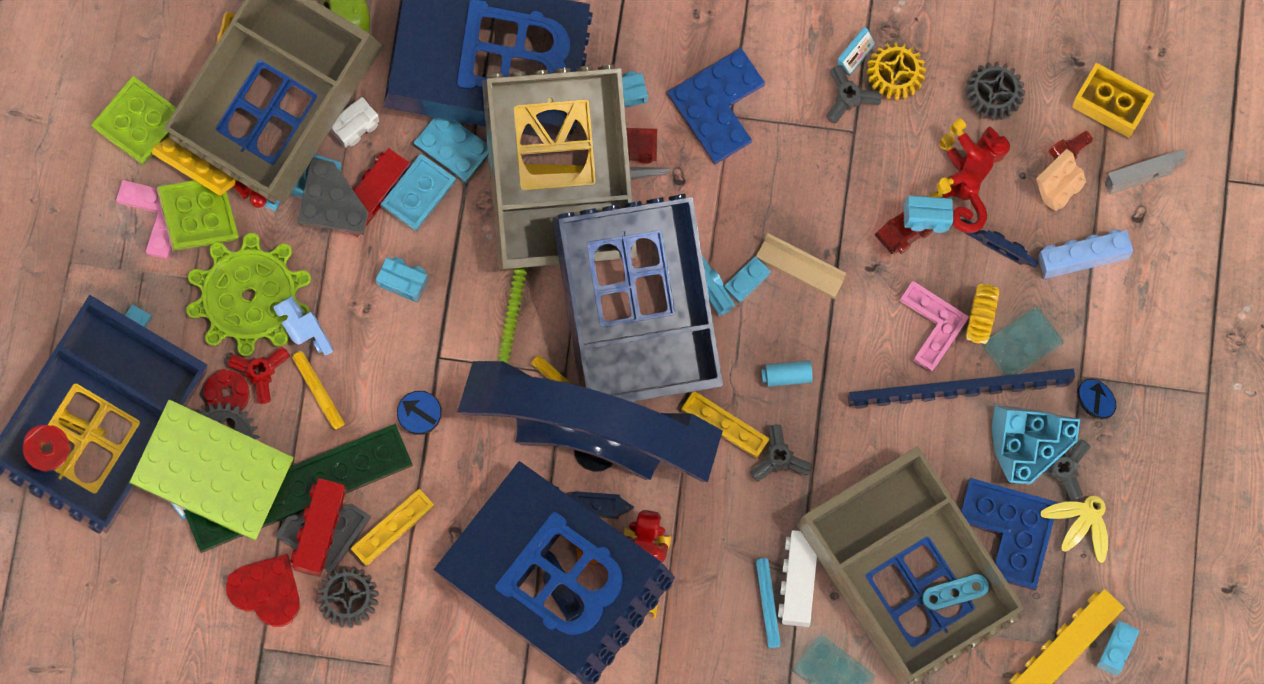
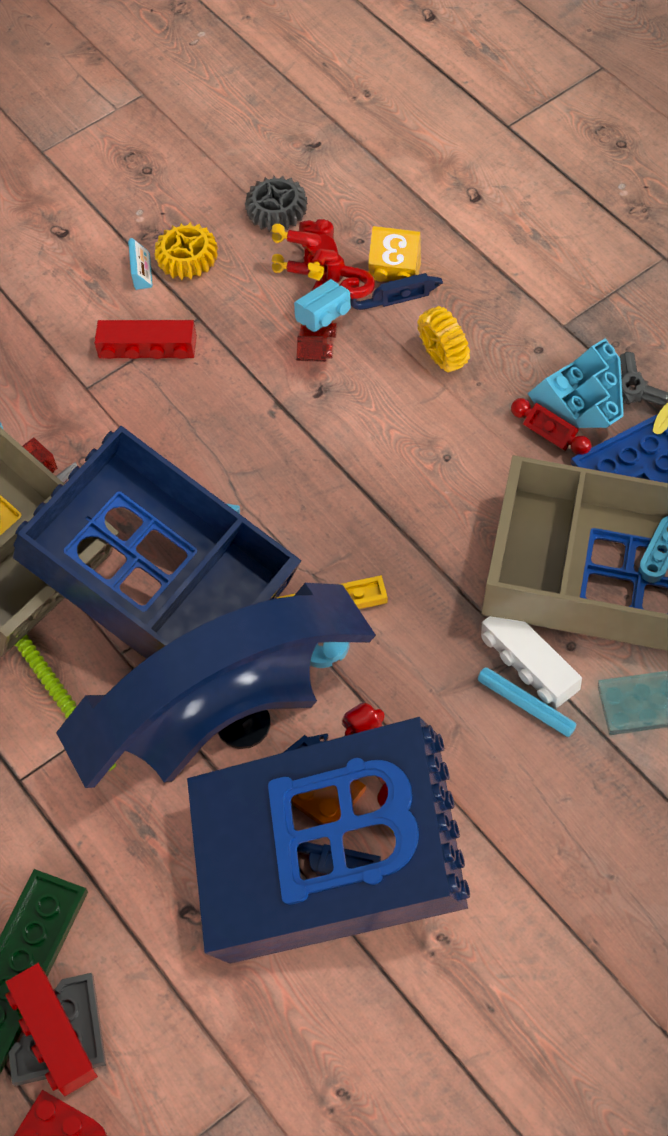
camera: 40 degrees left, 15 degrees down
(357, 596) = (136, 1080): dark grey gear -> none
(392, 527) = (123, 964): yellow plate -> none
(419, 412) = (47, 838): blue piece -> none
(707, 99) = (58, 395): blue plate -> none
(747, 279) = (229, 481): medium azure plate -> none
(779, 448) = (414, 581): dark grey bush -> none
(787, 373) = (340, 516): medium azure brick -> none
(800, 118) = (145, 339): none -> red brick
(801, 266) = (261, 433): tan panel -> none
(842, 101) = (166, 293): dark grey bush -> none
(948, 321) = (419, 371): bright pink plate -> none
(952, 389) = (482, 411): dark blue plate -> none
(983, 443) = (550, 426): none -> red plate
(1021, 217) = (394, 254): none -> yellow slope
(1023, 342) = (494, 340): clear light blue plate -> none
(1060, 181) = (394, 207): light nougat plate -> none
(1072, 145) = (375, 197): clear red pin -> none
(1085, 254) = (468, 243): light blue brick -> none
(1096, 399) = (595, 324): blue piece -> none
(1113, 100) = (370, 138): yellow brick -> none
(1143, 171) = (445, 163): light grey hinge -> none

